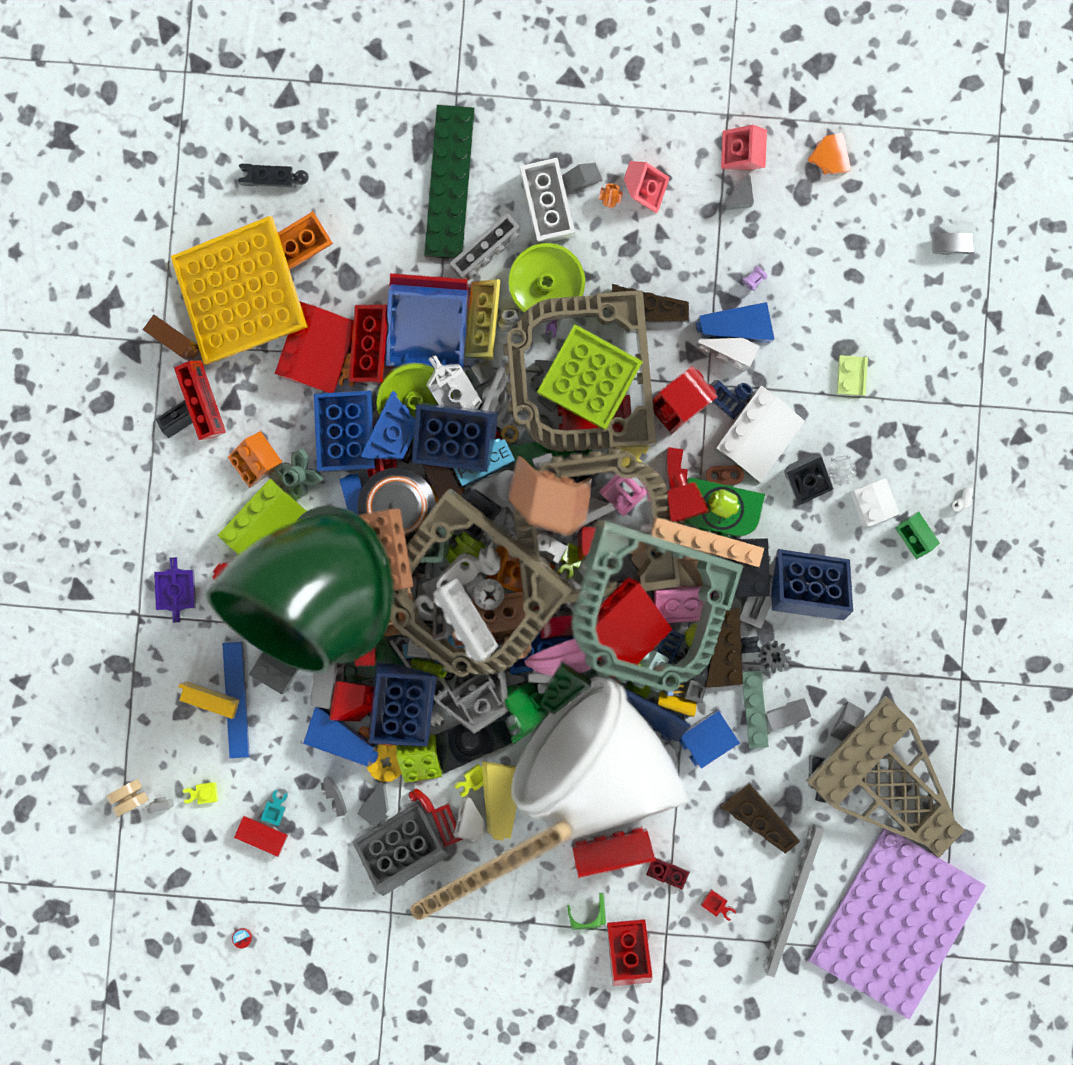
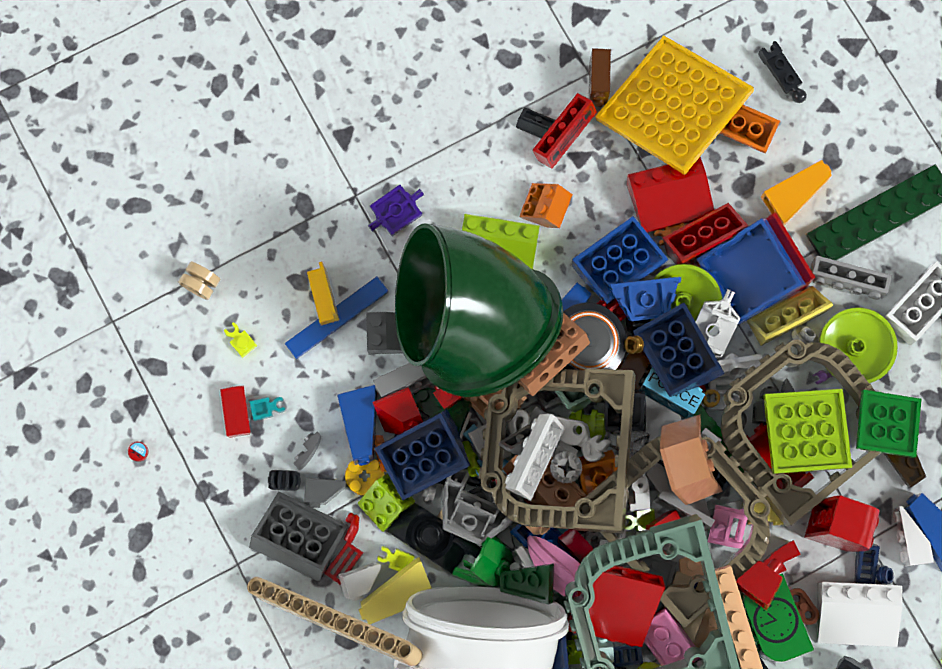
camera: 60 degrees right, 10 degrees down
(161, 804) = (210, 311): light grey plate -> none
(297, 475) = (557, 247): sand green plant -> none
(346, 832) = (284, 480): none -> black gear
(383, 245) = (796, 191): none -> light orange slope
(424, 469) = (634, 344): none -> pearl gold bush
(480, 374) = (742, 342): flat silver slope -> none
(627, 305) = (888, 423): none -> green plate
(723, 503) = (782, 617): lime head -> none

